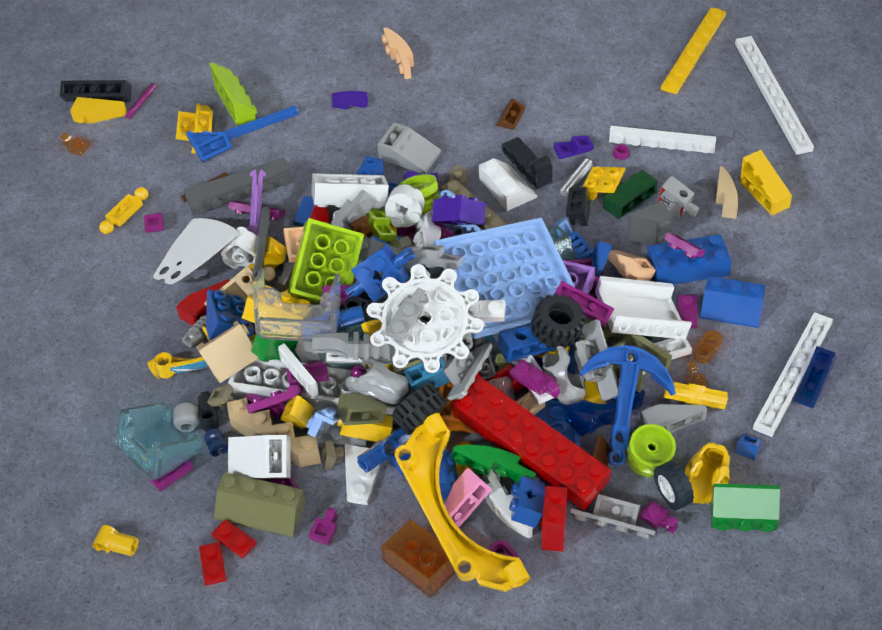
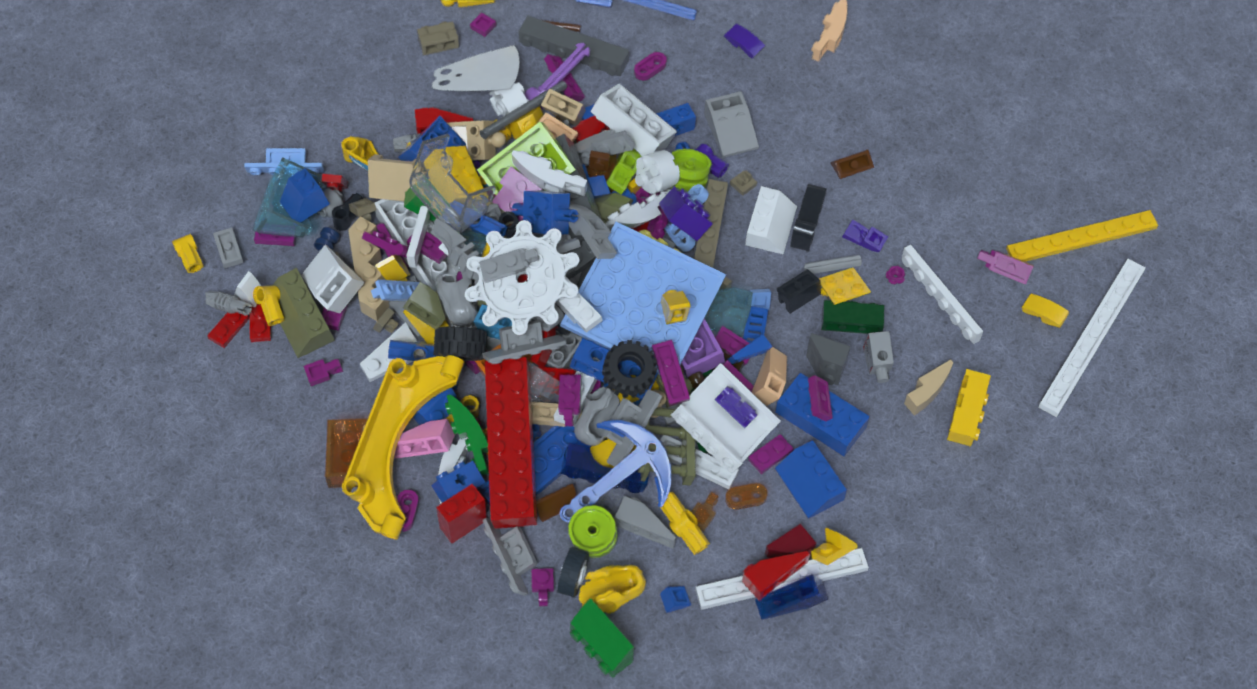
camera: 40 degrees right, 10 degrees up
(107, 422) = (273, 157): none -> light blue bracket
(131, 254) = (437, 38): none -> dark tan brick
(143, 511) = (228, 248): none -> light grey plate
(168, 421) = (302, 196): none -> blue slope
(176, 396) = (335, 182): none -> red plate
(194, 545) = (227, 302): none -> light grey hinge
(201, 523) = (245, 289): none -> white slope
(233, 516) = (268, 298): none -> yellow piece
(284, 219) = (563, 107): none -> tan slope
(306, 159) = (648, 65): none -> magenta plate
(326, 275) = (517, 182): none -> plate
(346, 253) = (541, 174): none -> white slope
(539, 257) = (675, 306): none -> yellow slope
(630, 295) = (735, 407): none -> dark purple hinge
(676, 95) = (1006, 265): none -> magenta hinge
(729, 100) = (1045, 309): none -> yellow slope
(775, 347) = (792, 542): none -> dark red slope
(789, 372) = (771, 572): none -> red slope
(800, 324) = (834, 548): none -> yellow slope

